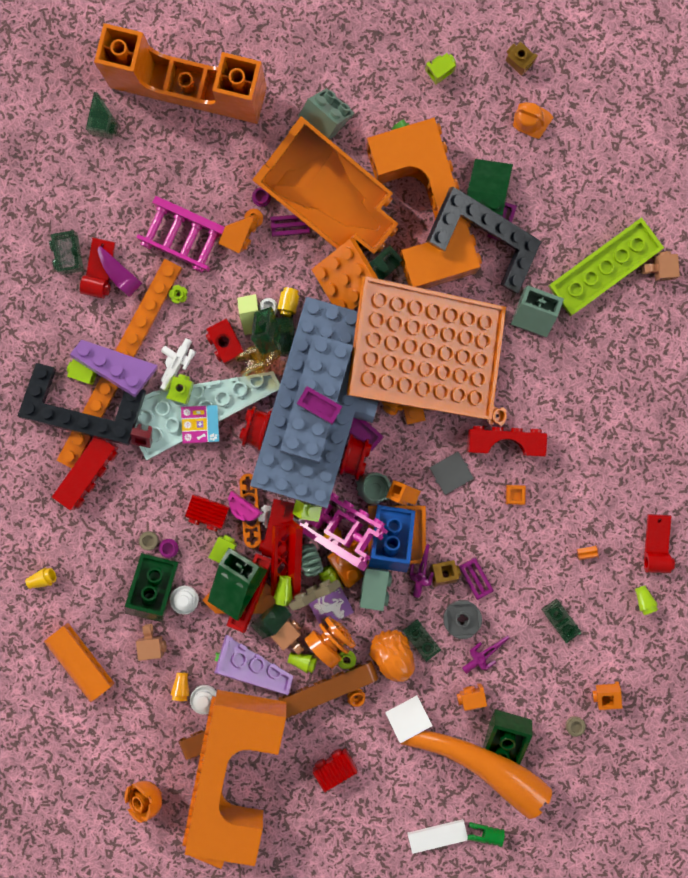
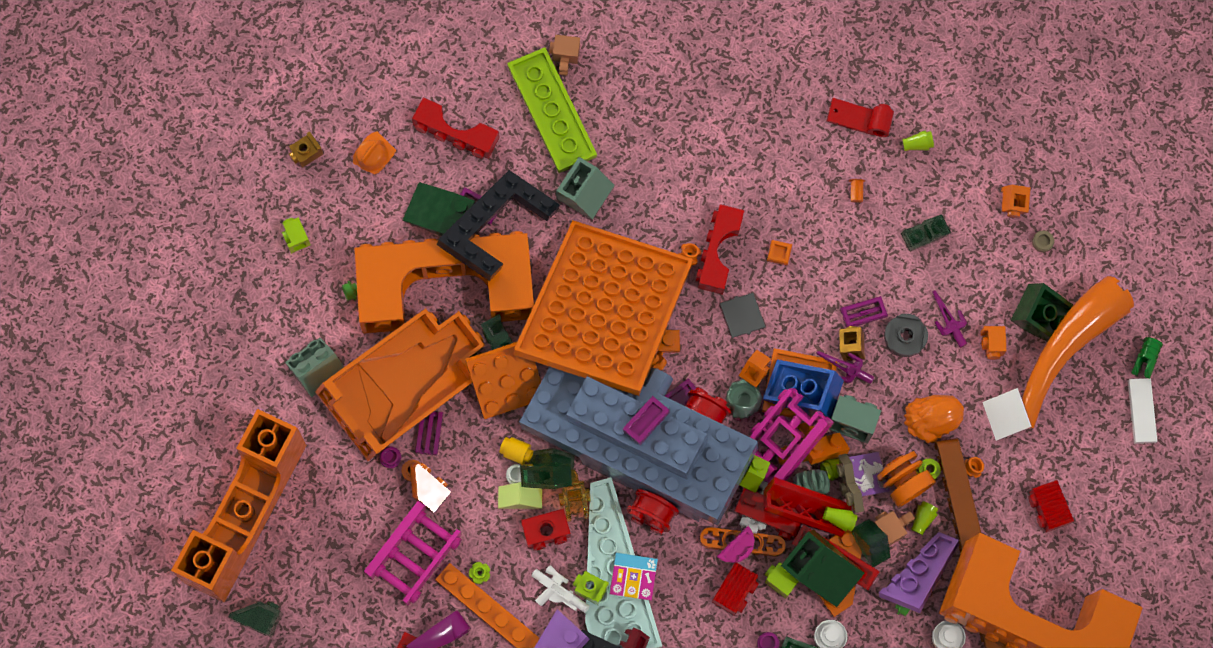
camera: 80 degrees left, 15 degrees down
(422, 640) = (922, 383): clear green slope -> none
(564, 208) = (479, 139): none -> red arch

